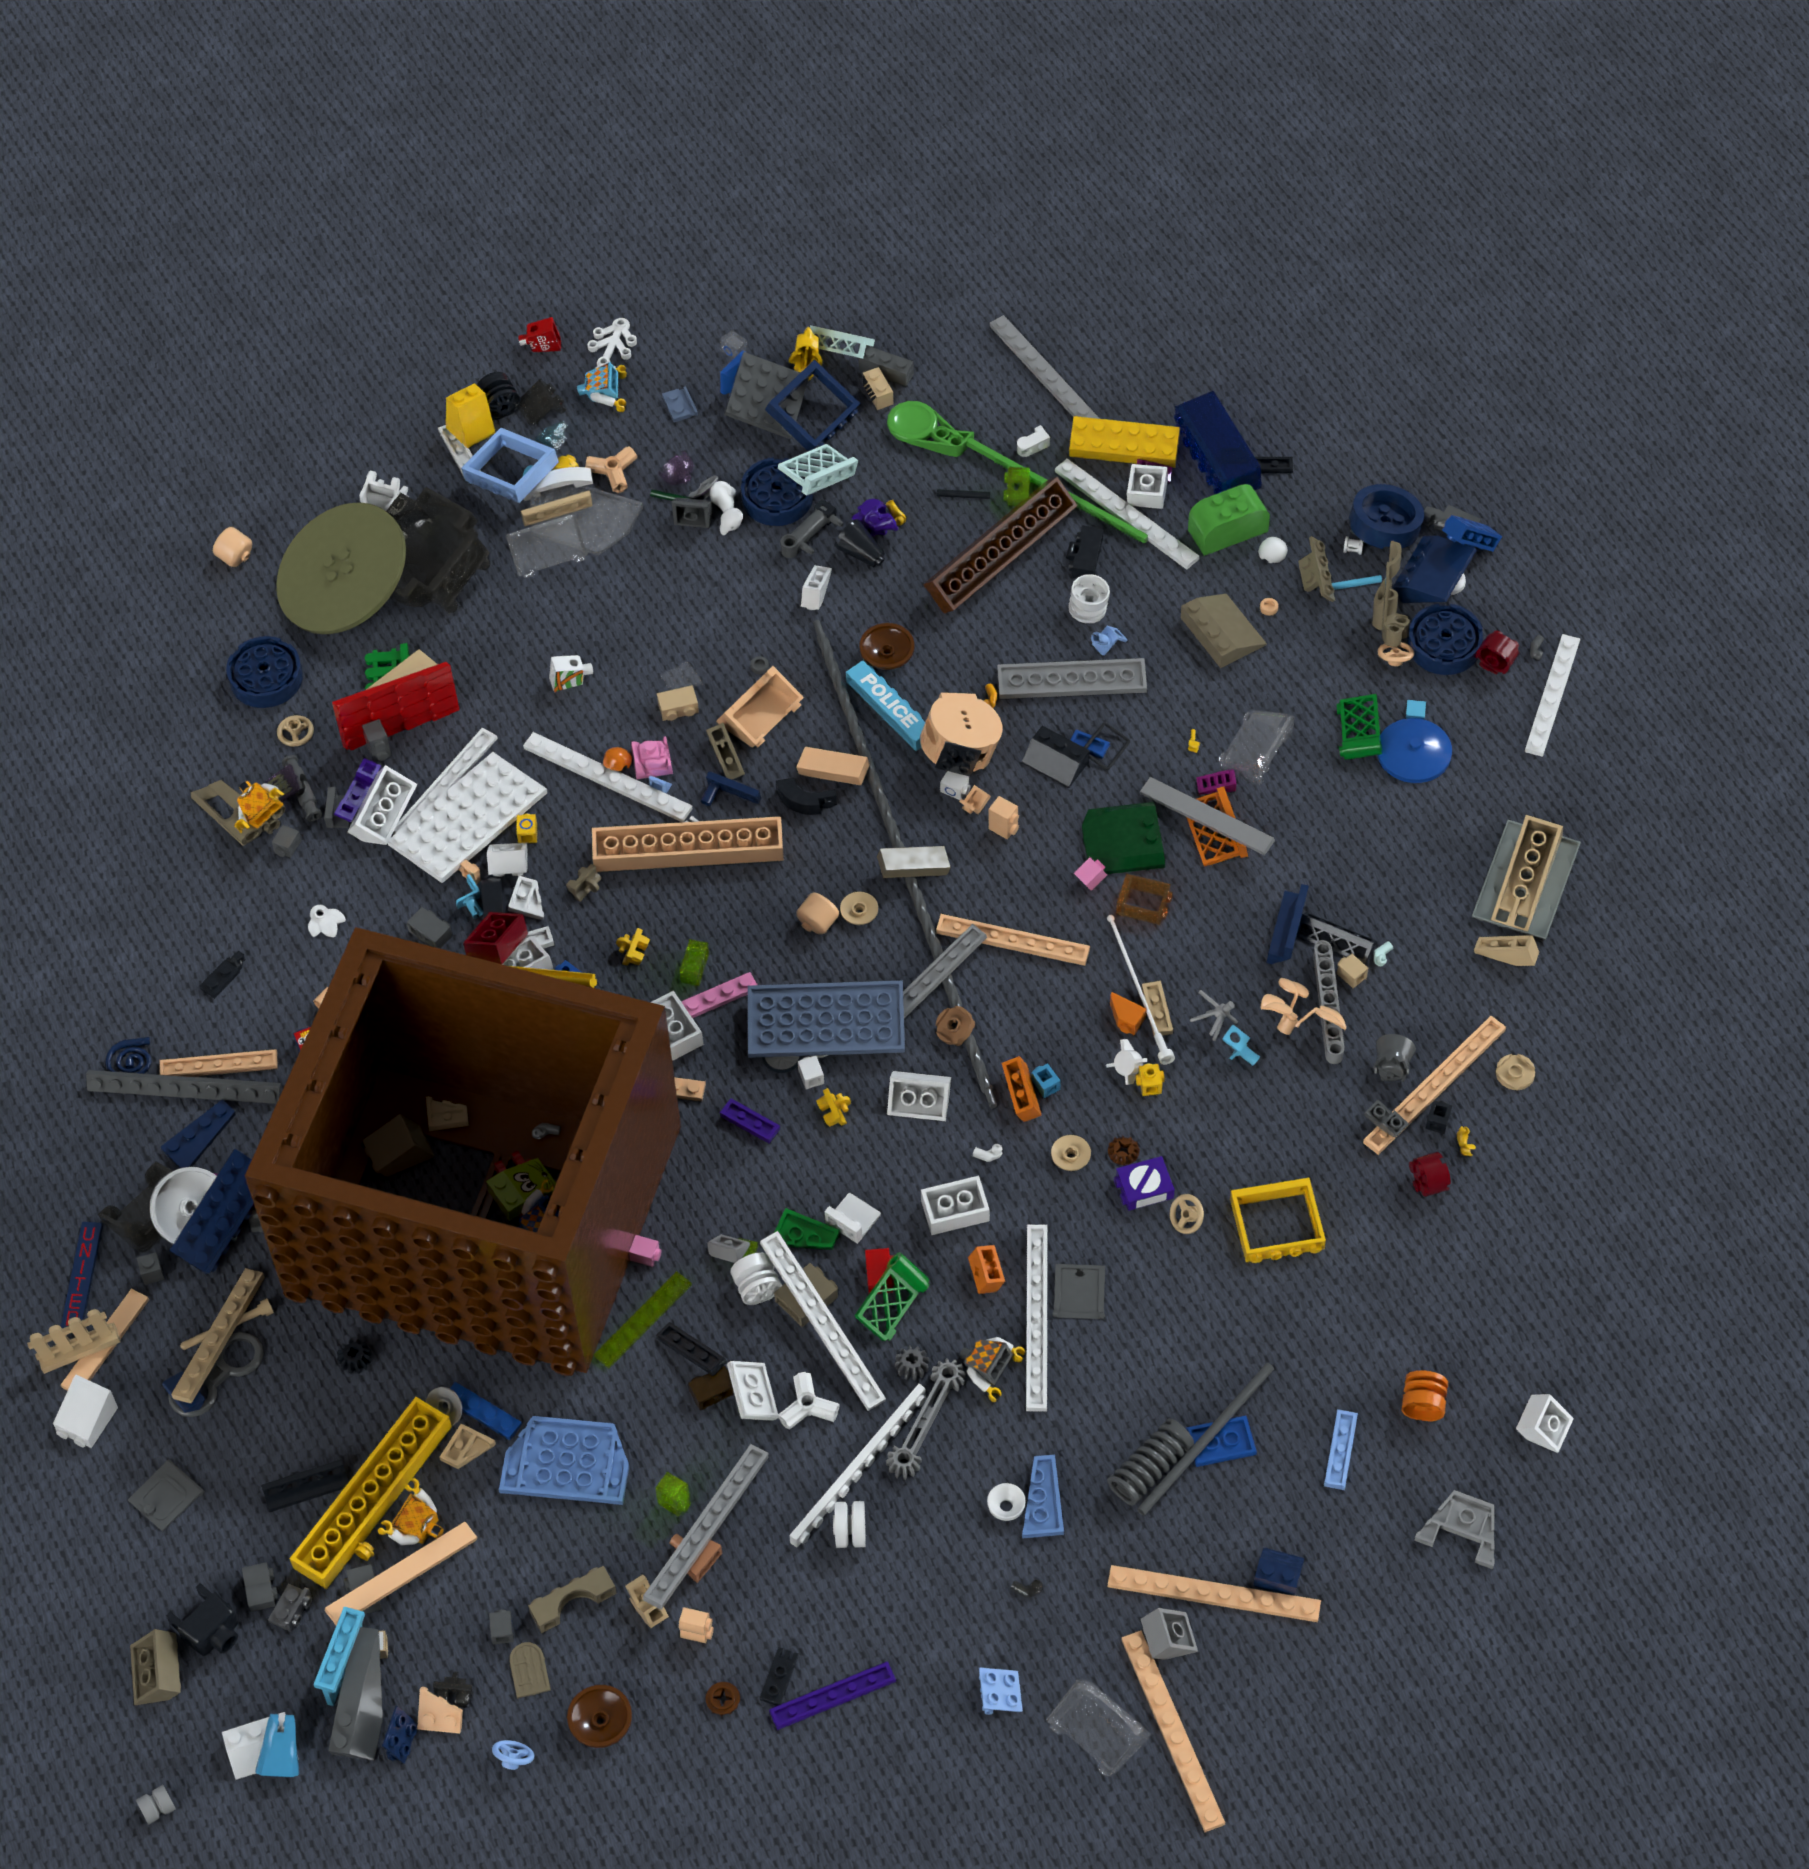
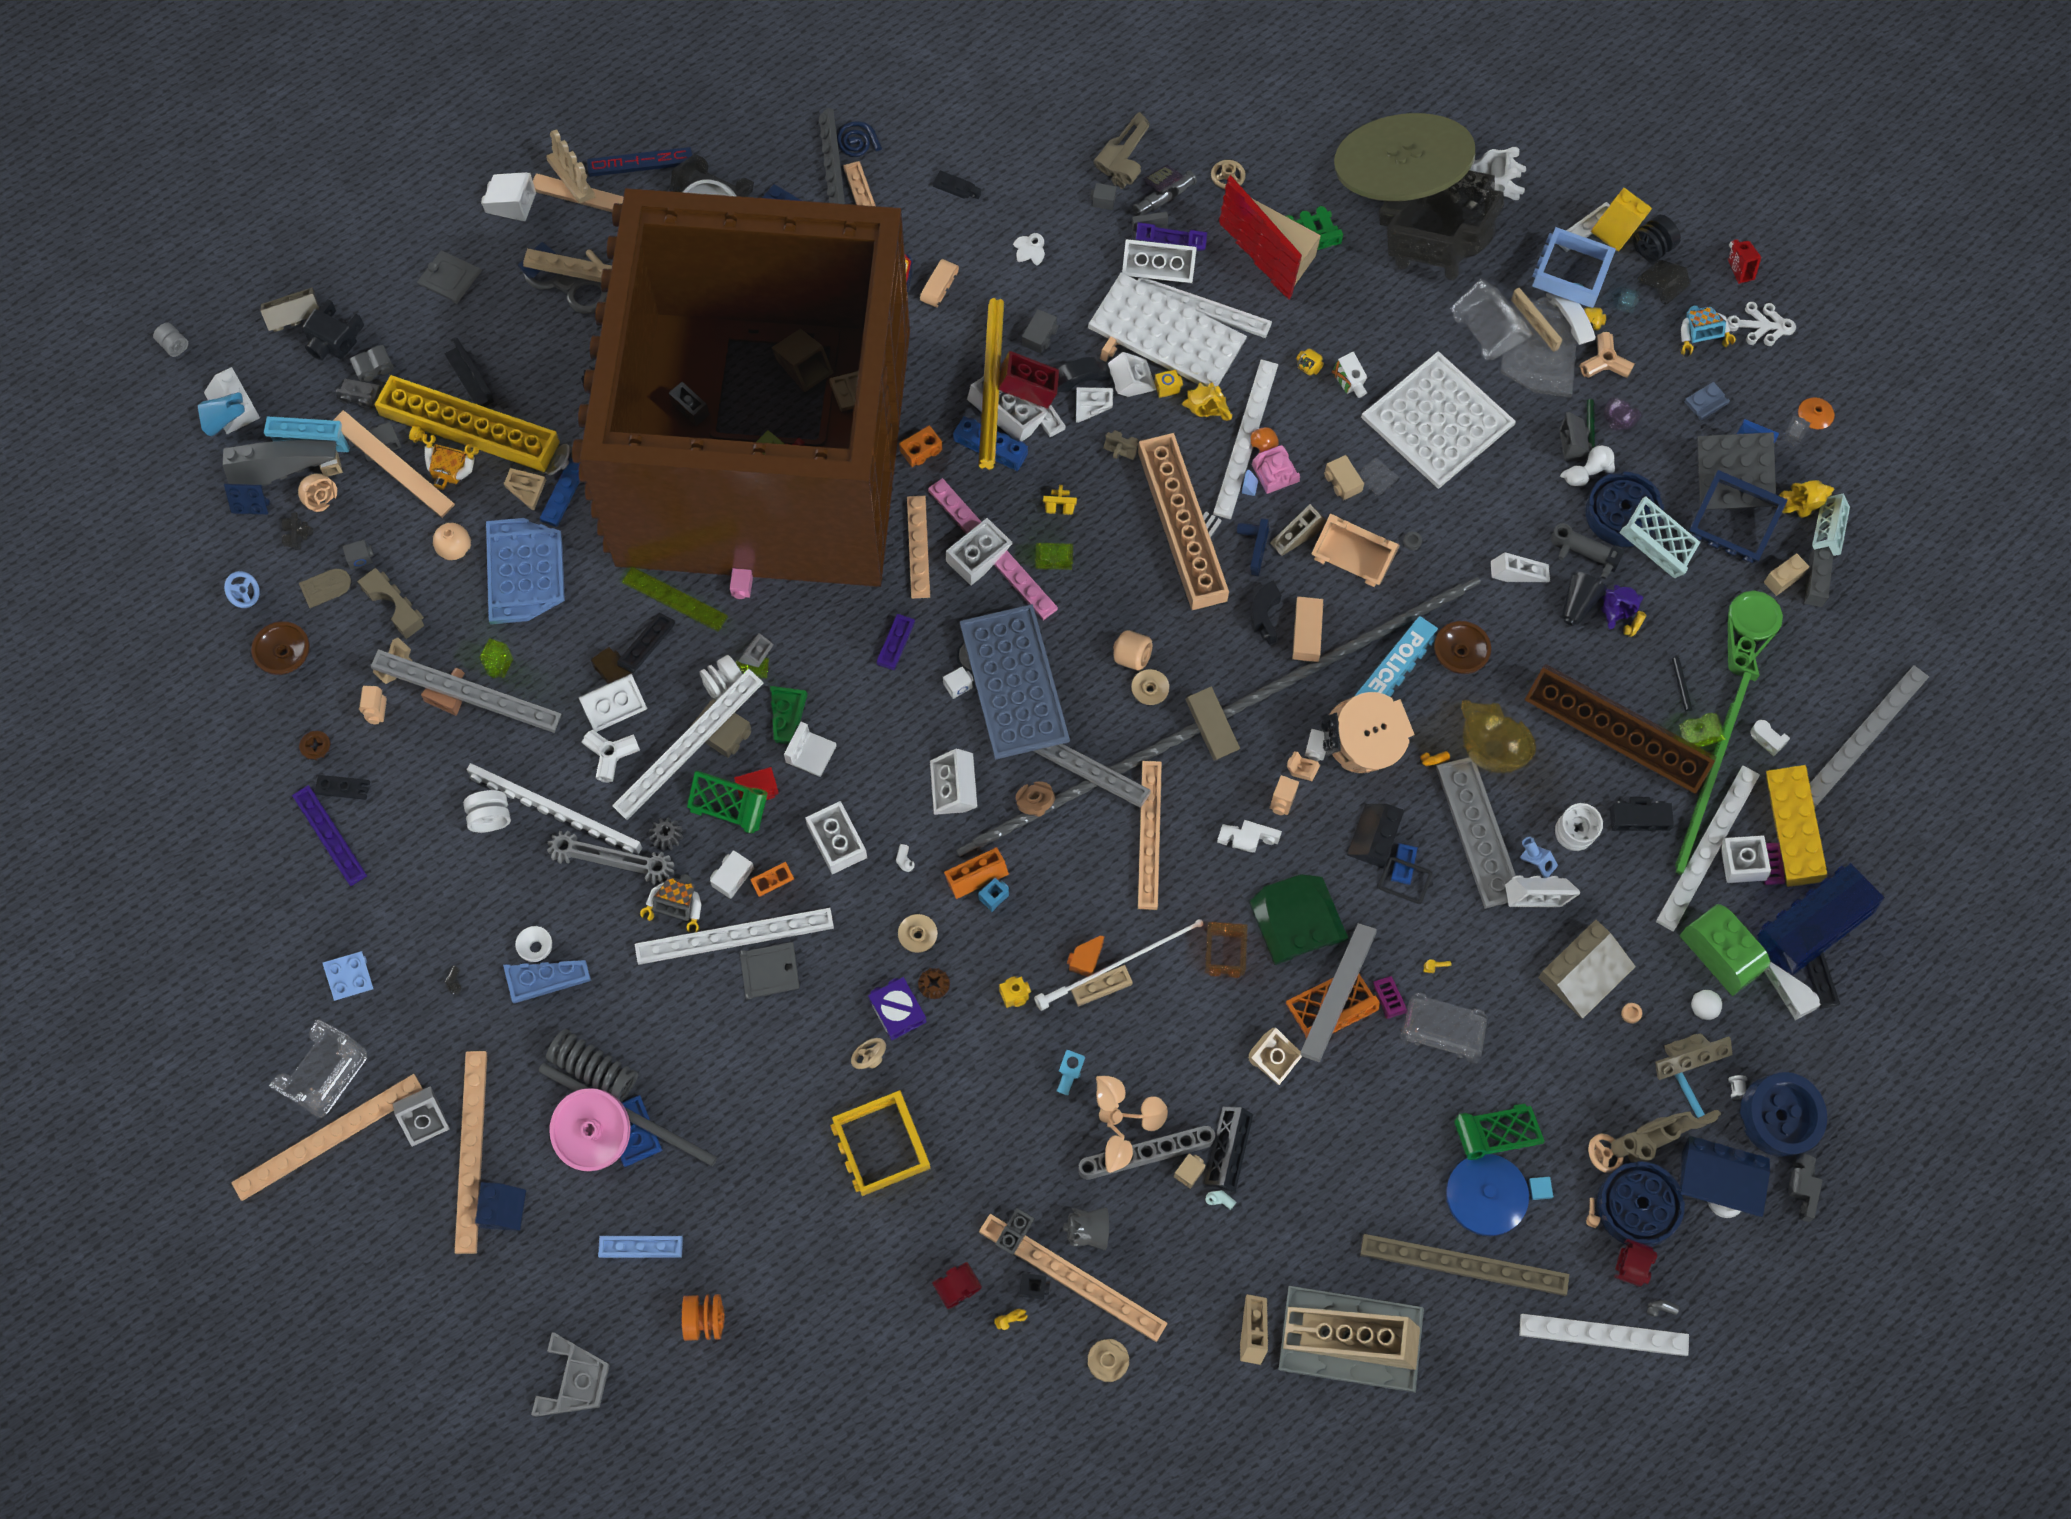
camera: 75 degrees right, 10 degrees up
(232, 547) = (1410, 70): light nougat head -> none
(257, 804) = (1121, 156): torso -> none
(265, 688) = (1276, 146): dark blue brick -> none
(376, 740) = (1226, 236): dark grey brick -> none
(409, 1661) = (316, 489): none -> light nougat cylinder
(438, 1714) = (271, 525): light nougat wing -> none
(470, 899) = (1077, 354): medium azure bracket -> none
(511, 1530) = (451, 541): none -> light nougat cylinder
(540, 704) = (1309, 362): none -> yellow head
(559, 795) = (1207, 401): none -> yellow head
(636, 615) = (1438, 419): none -> white plate
(704, 489) = (1600, 440): light grey dish -> none
(714, 332) = (1818, 420): none -> orange dish
(830, 1101) = (925, 711): yellow hips -> none
(970, 1308) = (731, 874): none -> white brick
(989, 640) = (1495, 740): none -> clear yellow windscreen
(1034, 859) = (1248, 836): none -> white plate
(1091, 873) = (1242, 892): bright pink brick -> none
(1127, 1062) = (1029, 967): white piece -> none
(1144, 640) = (1540, 891): none -> white slope
(1216, 1472) = (590, 1129): none -> bright pink dish
(1220, 1012) = (1100, 1044): light grey plant -> none
(1254, 882) = (1274, 1055): none -> tan slope
(1278, 484) = (1794, 993): none -> white slope
(1287, 925) = (1225, 1094): dark blue slope -> none
(1450, 679) = (1592, 1220): none -> light nougat hand
(1471, 533) = (1782, 1207): blue brick -> none
(1474, 781) = (1464, 1264): none -> dark tan plate
(1545, 1422) = (698, 1446): white slope -> none

